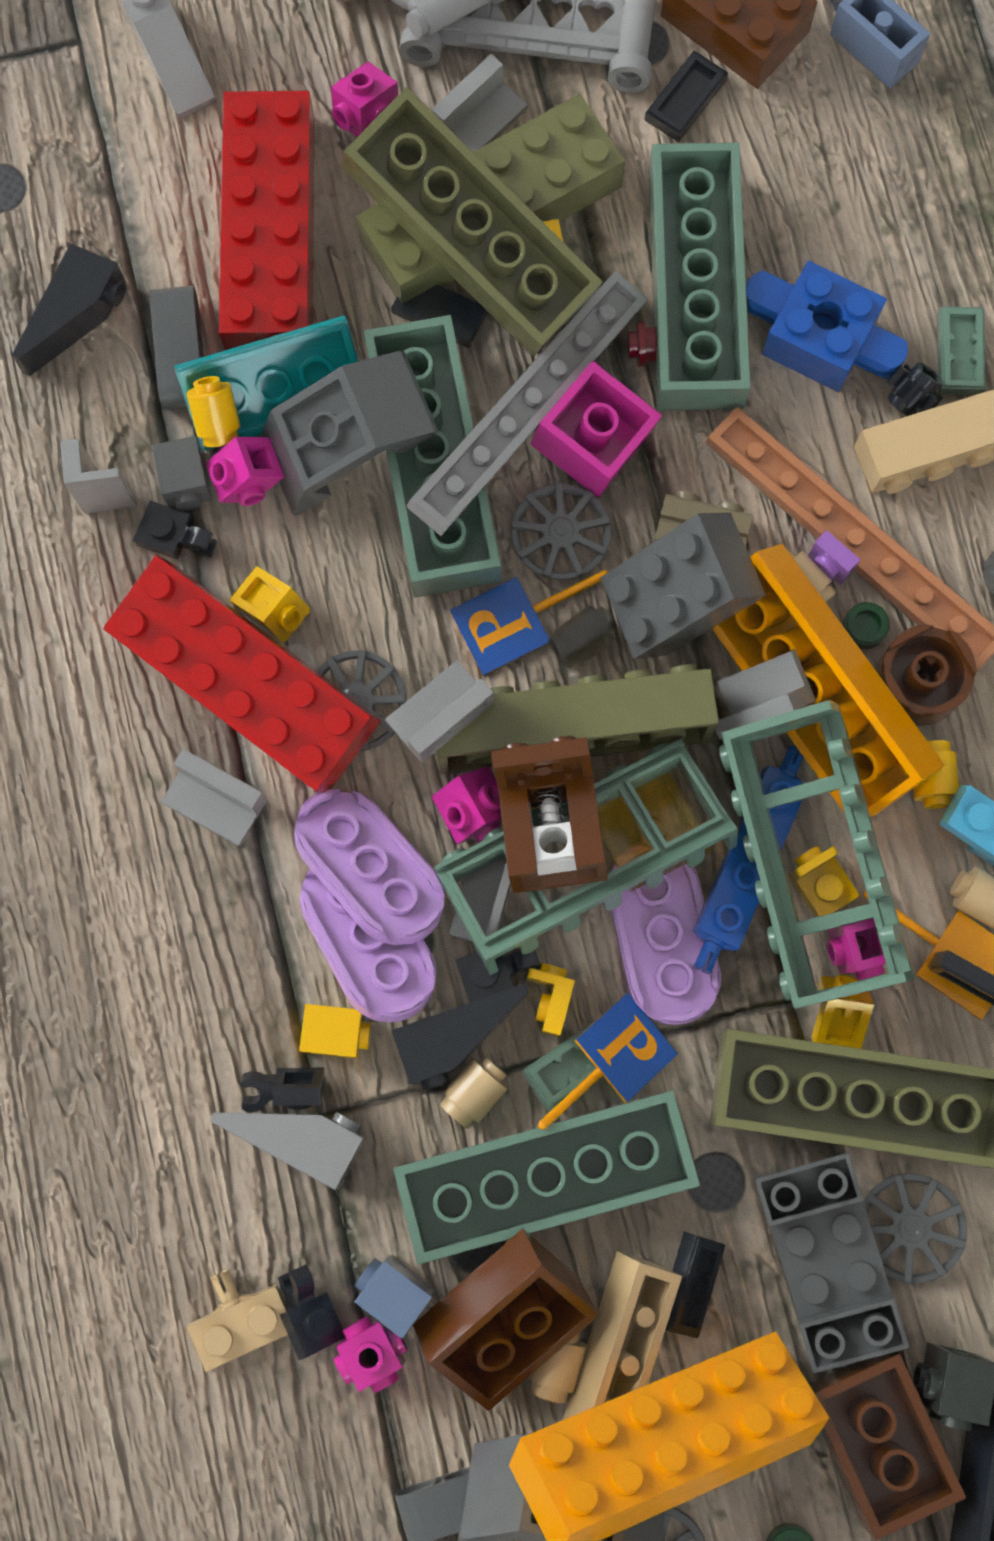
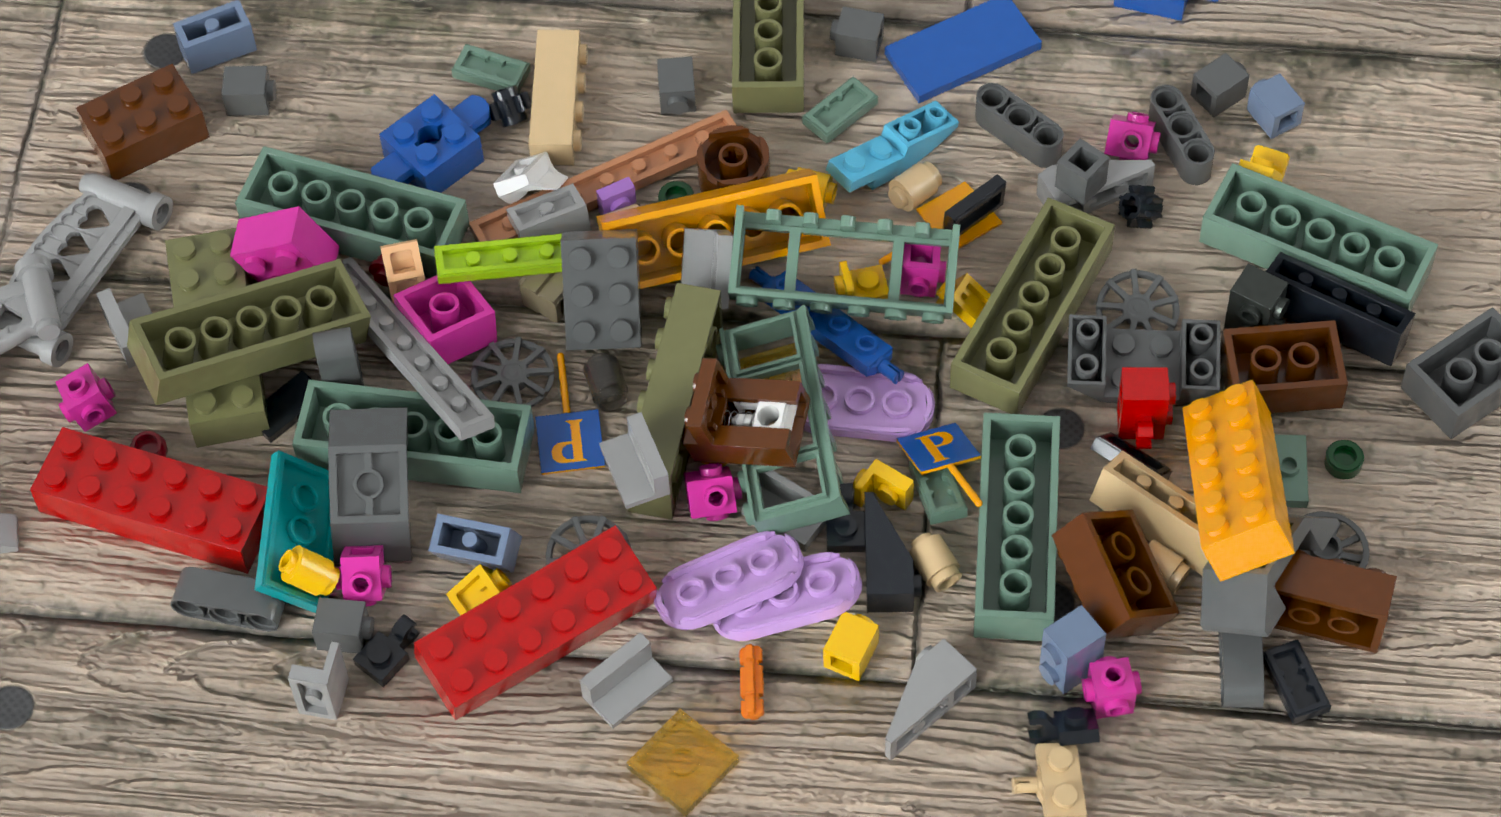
camera: 70 degrees left, 20 degrees down
(71, 307) = (146, 661): black slope -> none
(140, 893) = (682, 762): none -> clear yellow tile
(257, 934) = (751, 682): none -> orange axle
(288, 1087) = (884, 686): black plate -> none
(319, 573) = (475, 543): none -> sand blue brick
(334, 192) = (150, 442): none -> dark red plate
(482, 336) = (337, 356): none -> dark grey beam
(608, 221) = (281, 243): none -> dark pink brick
(634, 358) = (402, 265): none -> light nougat slope
(683, 454) = (498, 258): none -> lime tile
(686, 96) = (192, 183): black tile -> none
(754, 1490) = (1293, 466): none -> sand green plate
(761, 1282) = (1144, 404): none -> red brick
(772, 493) = (550, 214): none -> light grey panel
(821, 449) = (528, 175): none -> white slope
(825, 99) = (247, 90): none -> dark grey brick

